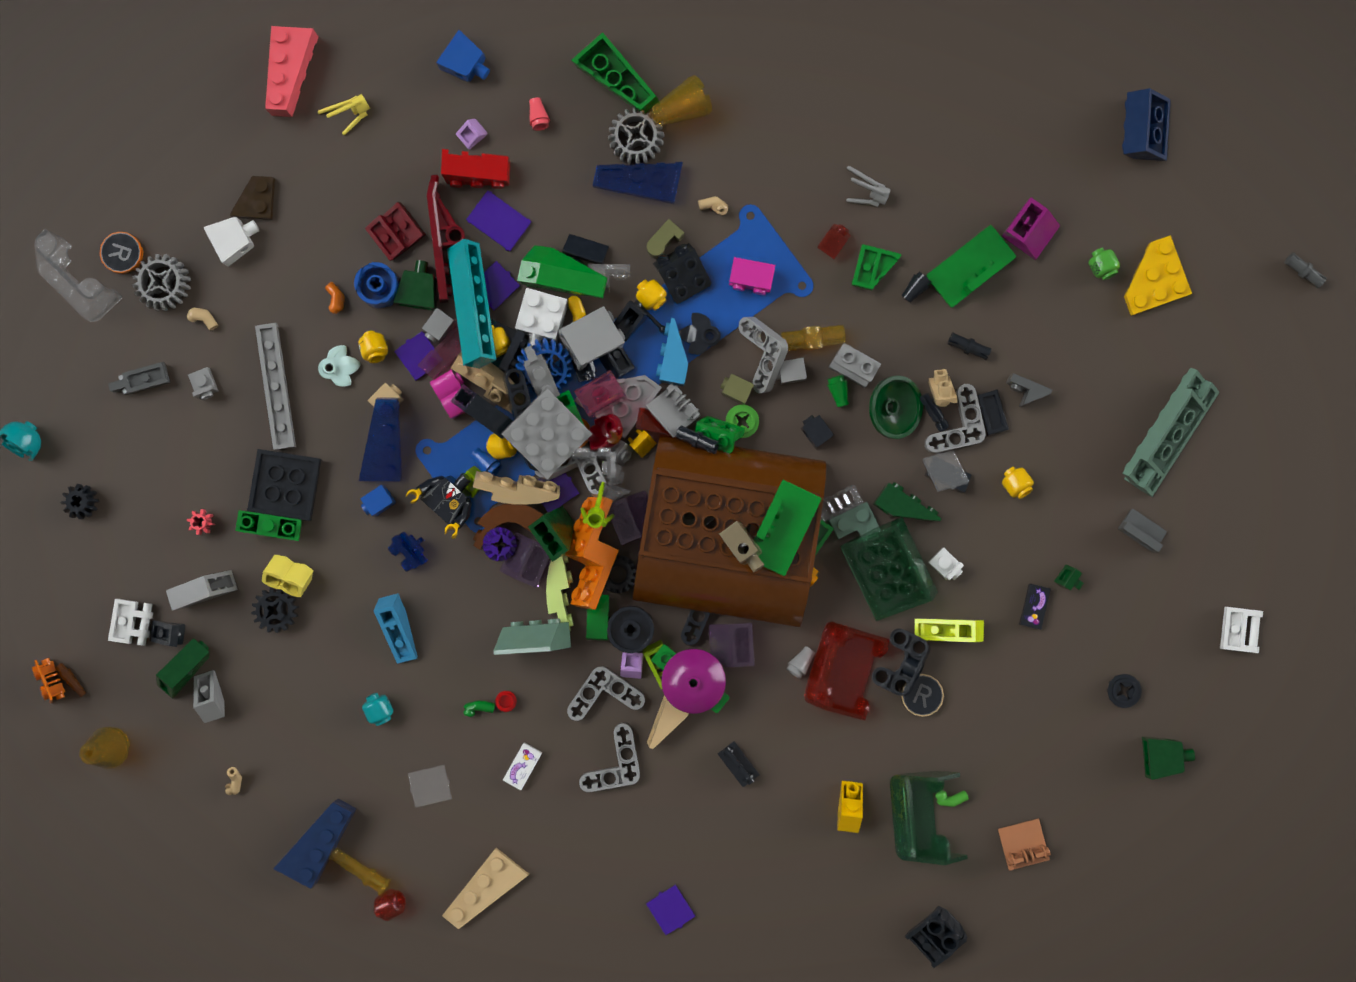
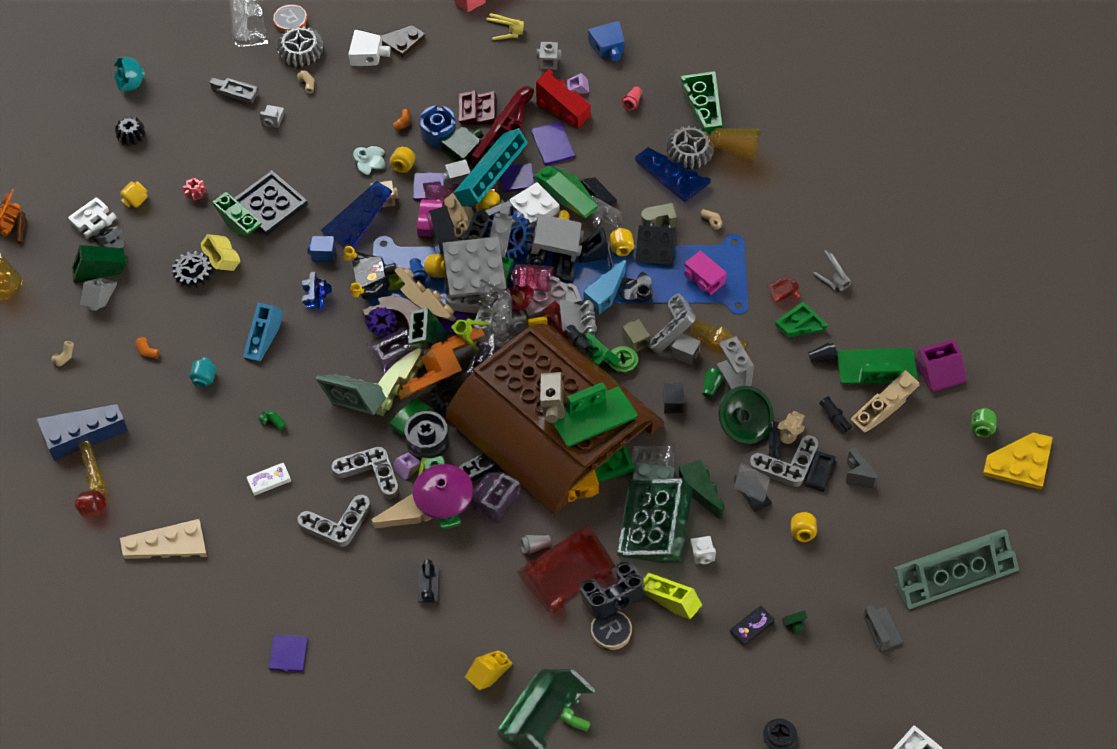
camera: 35 degrees right, 30 degrees down
(148, 570) = (133, 194): none -> yellow head
(201, 589) = (157, 226): light grey slope -> none
(275, 386) = (317, 145): light grey plate -> none
(297, 720) = (144, 350): none -> orange arm
(419, 120) = (547, 52): none -> light grey brick
(429, 786) = (191, 449): clear piece -> none
(506, 701) = (295, 428): red plate -> none
(1005, 303) = (886, 403): none -> tan slope
(1146, 125) = (1084, 355): dark blue slope -> none

